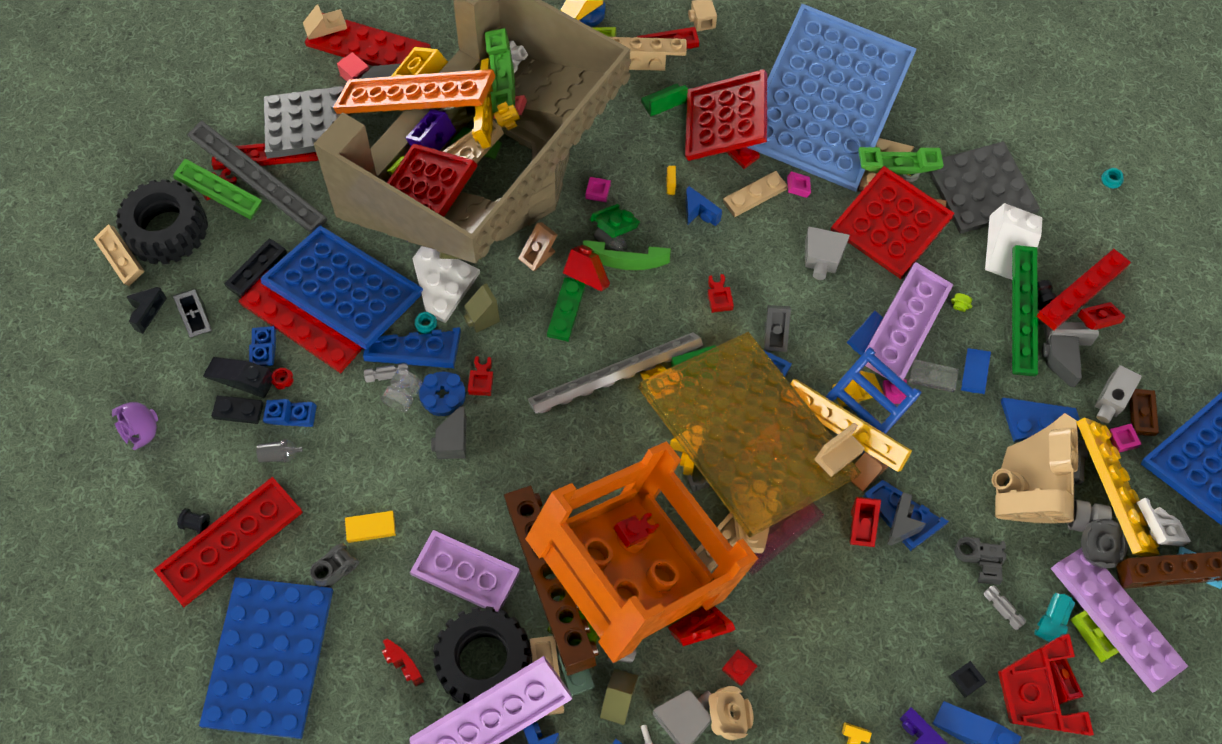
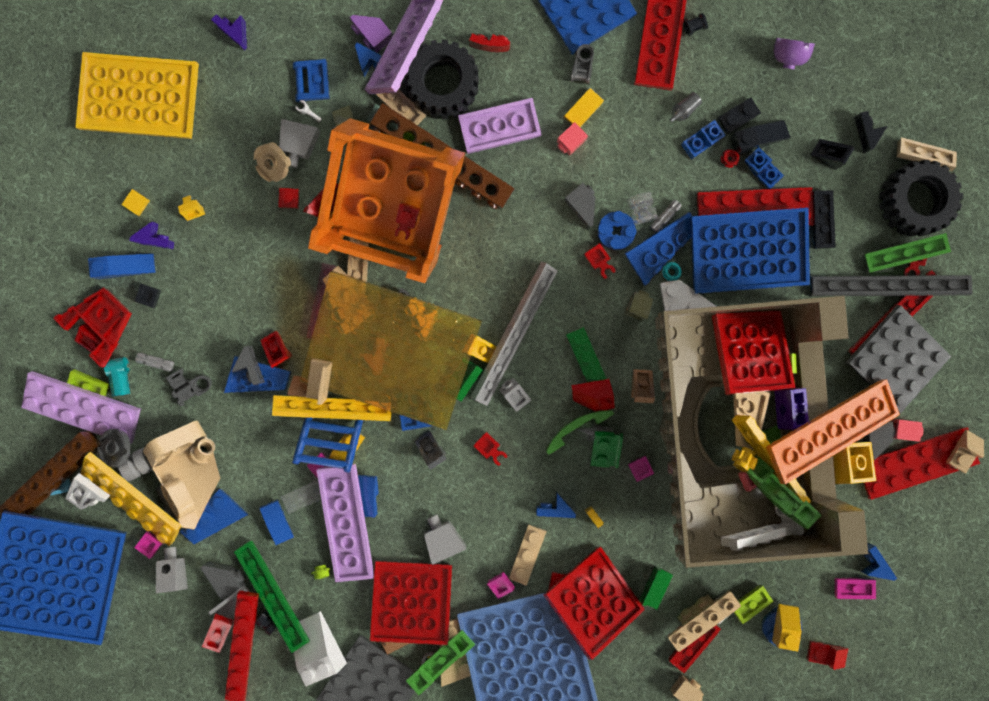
camera: 145 degrees right, 25 degrees up
(408, 503) = (571, 139): none -> coral brick
(550, 52) = (753, 537): none -> white plate
(659, 324) = (514, 394): none -> light grey bracket
(1144, 412) = (145, 574): reddish brown plate -> none

